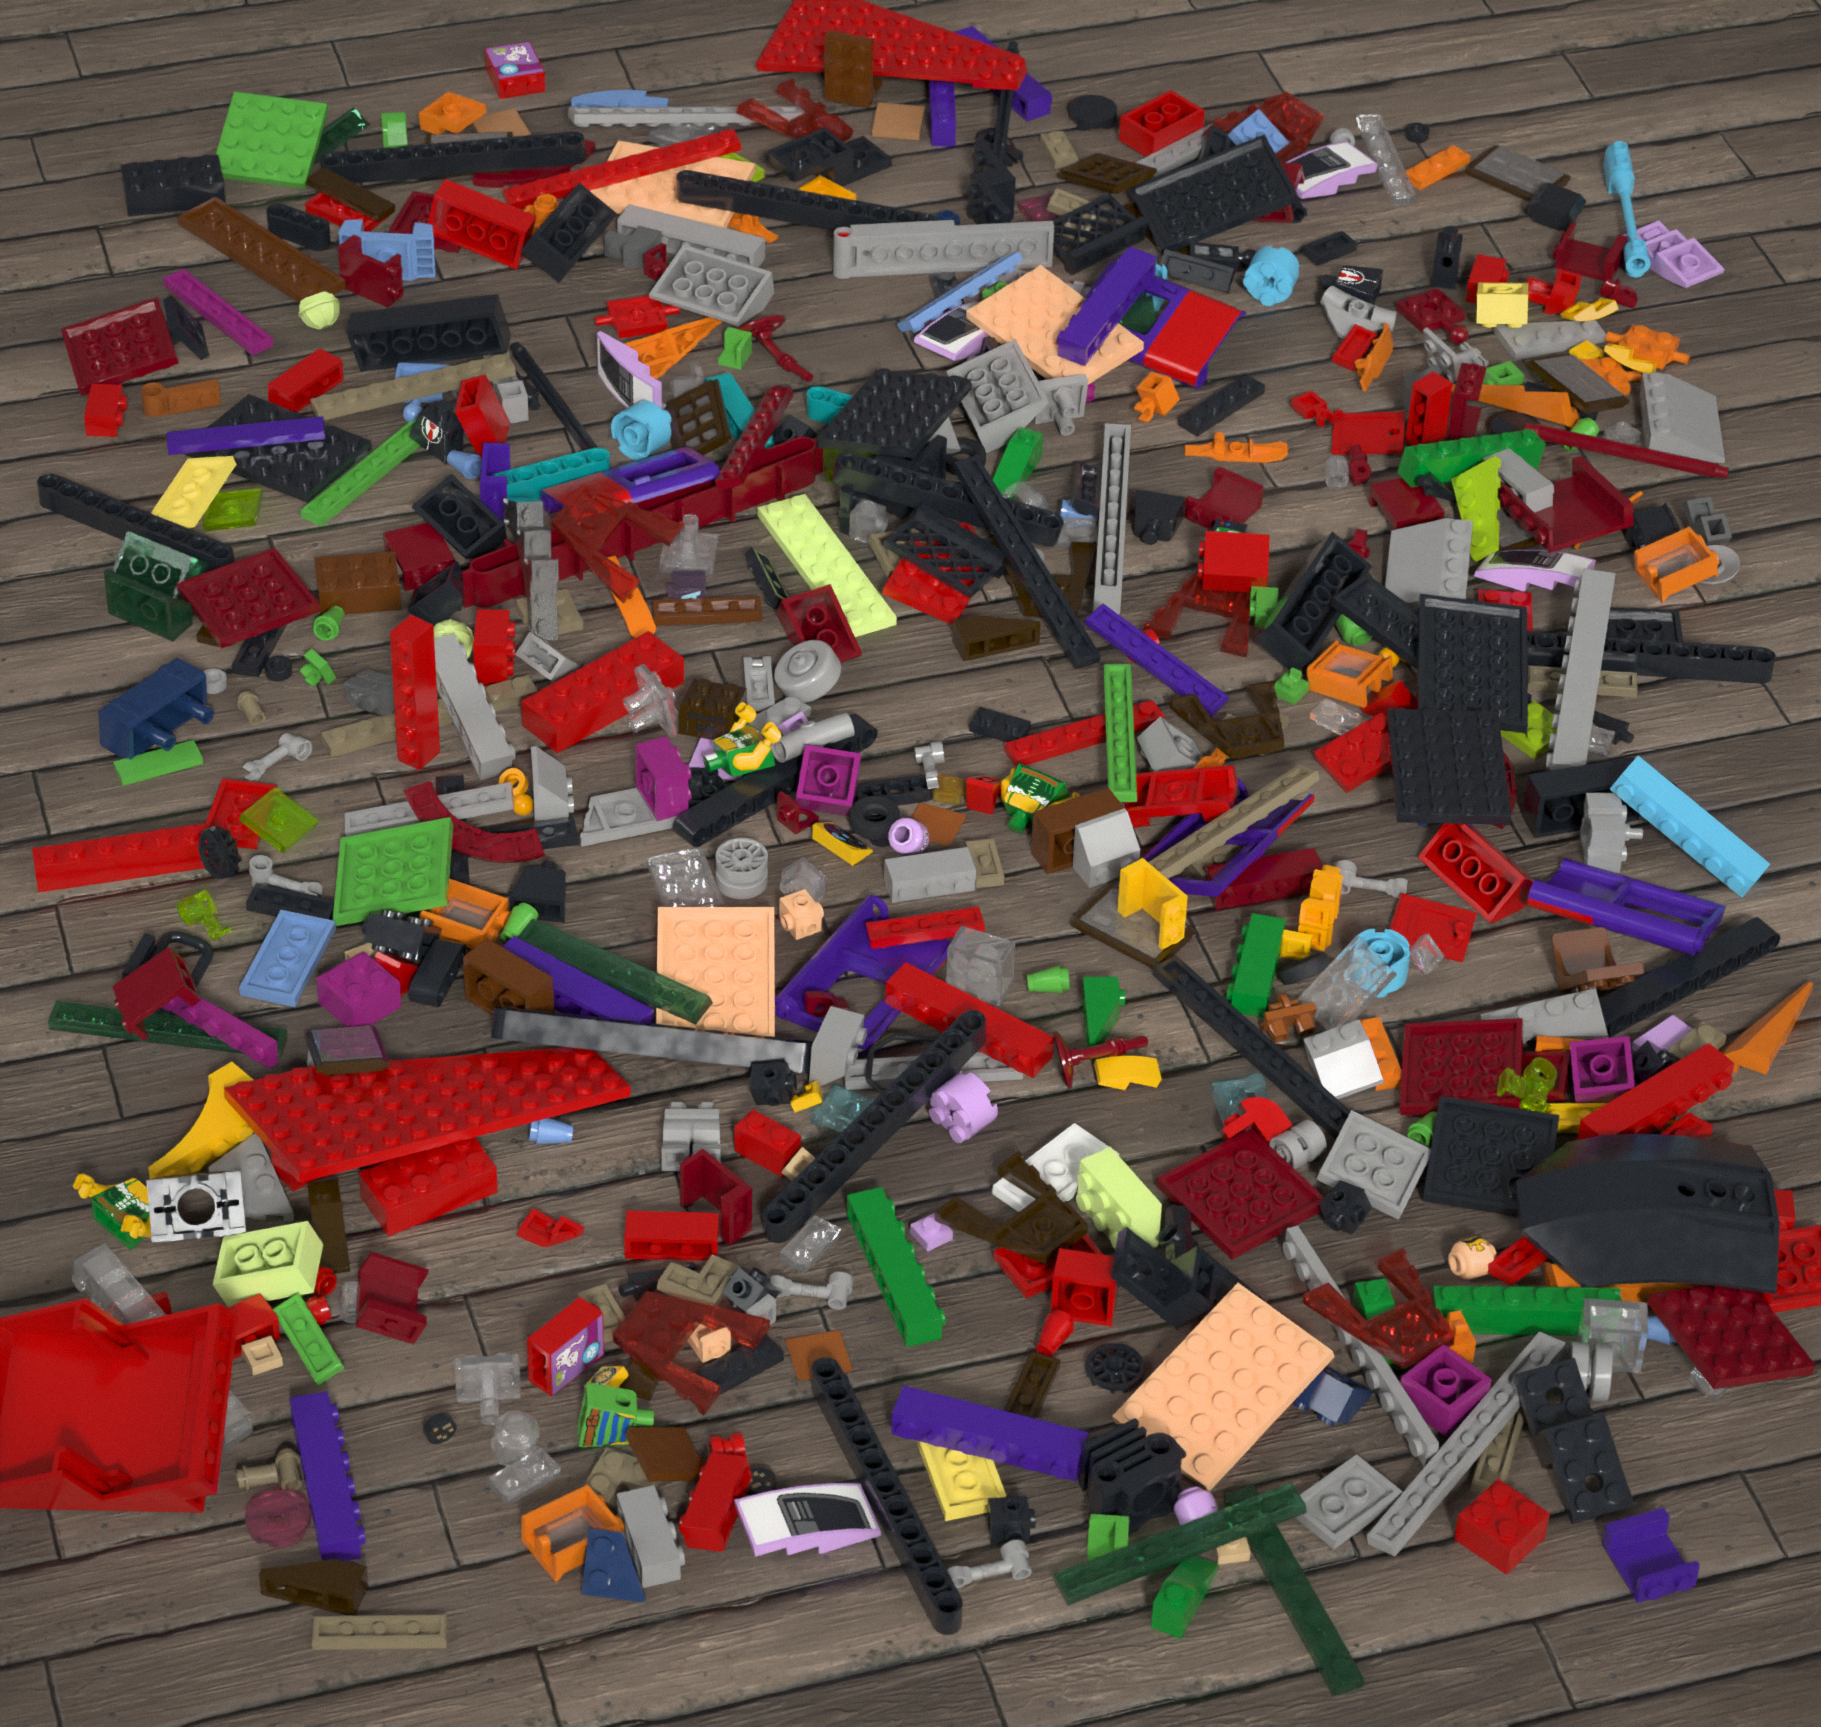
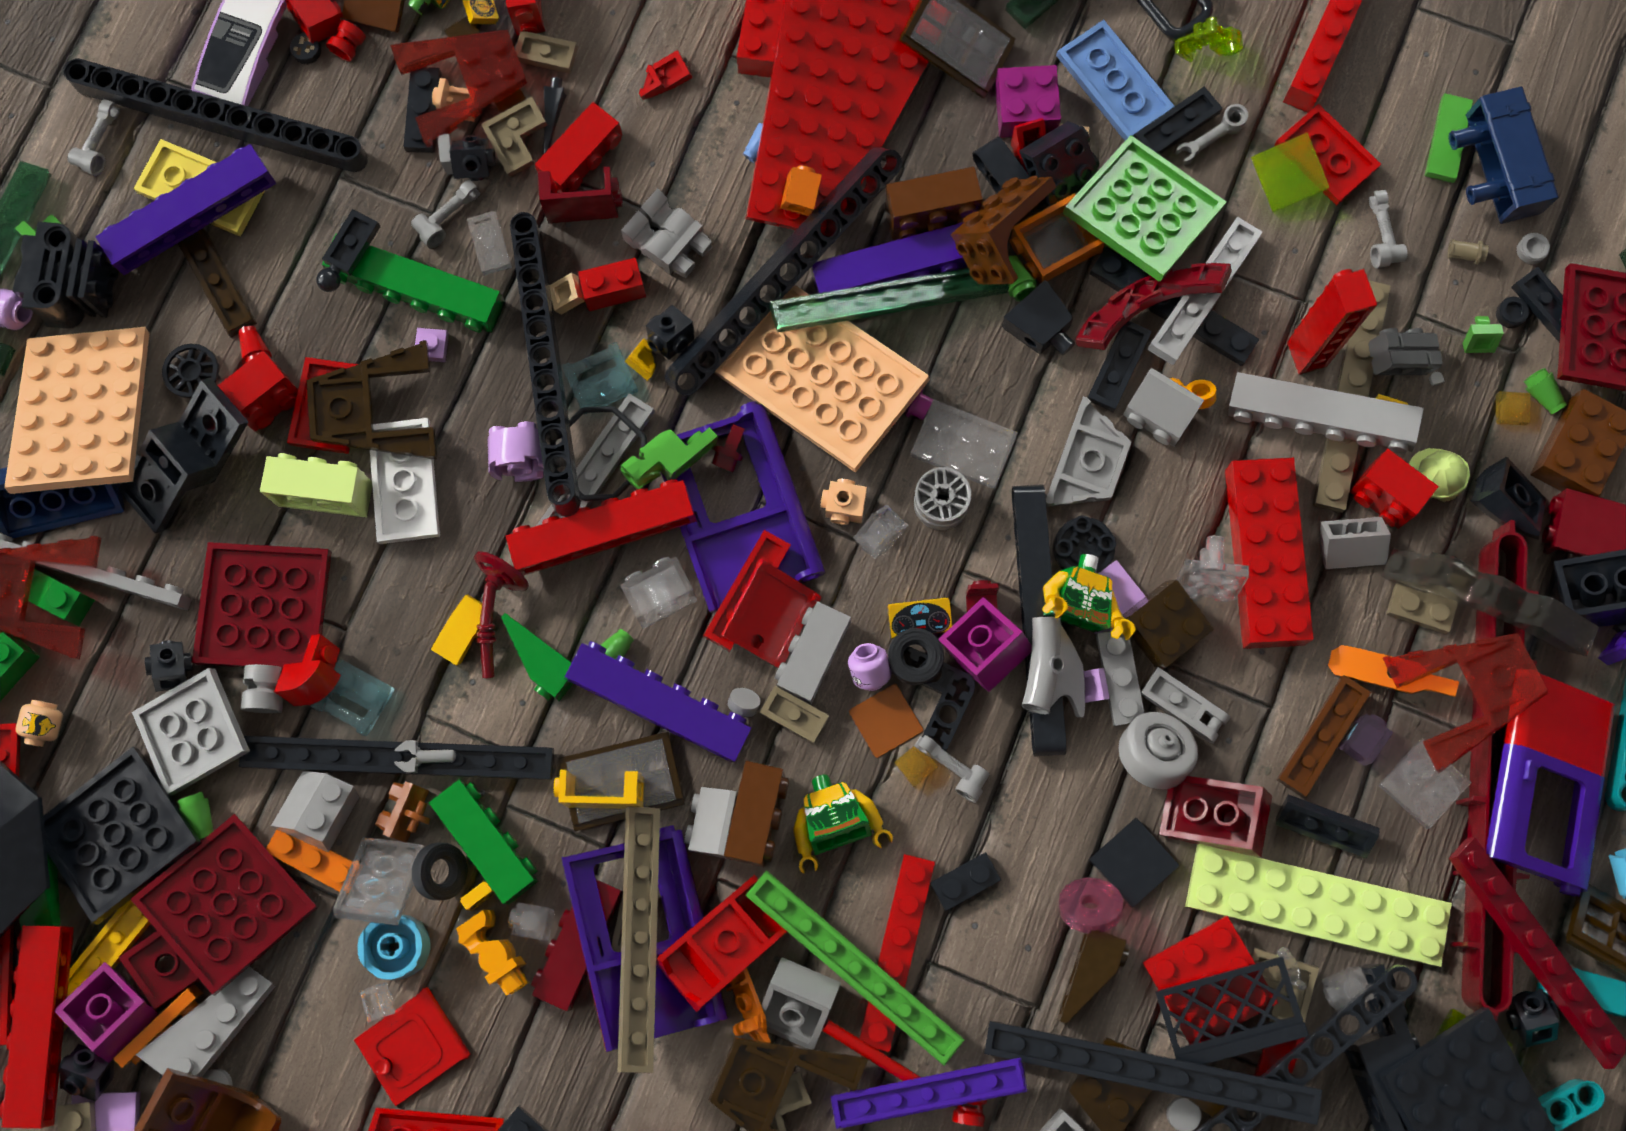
camera: 135 degrees right, 35 degrees up
(223, 856) = (1279, 97): black wheel -> none
(358, 635) = (1512, 408): none -> clear yellow plate
(501, 914) = (985, 233): none -> reddish brown bracket
(580, 1053) = (801, 190): none -> orange brick
(662, 778) = (1087, 491): magenta brick -> none
(809, 1348) = (388, 178): dark orange sticker -> none
(836, 1045) = (656, 398): light grey slope -> none
(878, 1013) = (667, 455): none -> bright green plate
(880, 549) = (1292, 967): none -> clear piece
(895, 657) = (1134, 862): none -> black tile
(915, 1297) = (347, 249): none -> black plate
(929, 905) = (770, 608): none -> red container
(937, 644) = (1090, 891): none -> clear pink tile
(982, 793) = (882, 789): red slope -> none
(1006, 891) = (743, 702): none -> light grey tile
(1009, 1519) = (113, 173): black brick -> none
(1059, 921) = (656, 702): none -> dark purple brick
(1162, 699) = (868, 1051): none -> red bar
(1177, 1233) = (249, 506): black piece -> none
(1243, 1028) = (422, 756): none -> light grey bar
(1280, 902) = (531, 921): none -> clear brick
(1348, 870) = (523, 1020): light grey brick -> none
(1531, 1085) = (129, 923): clear neon green piece -> none

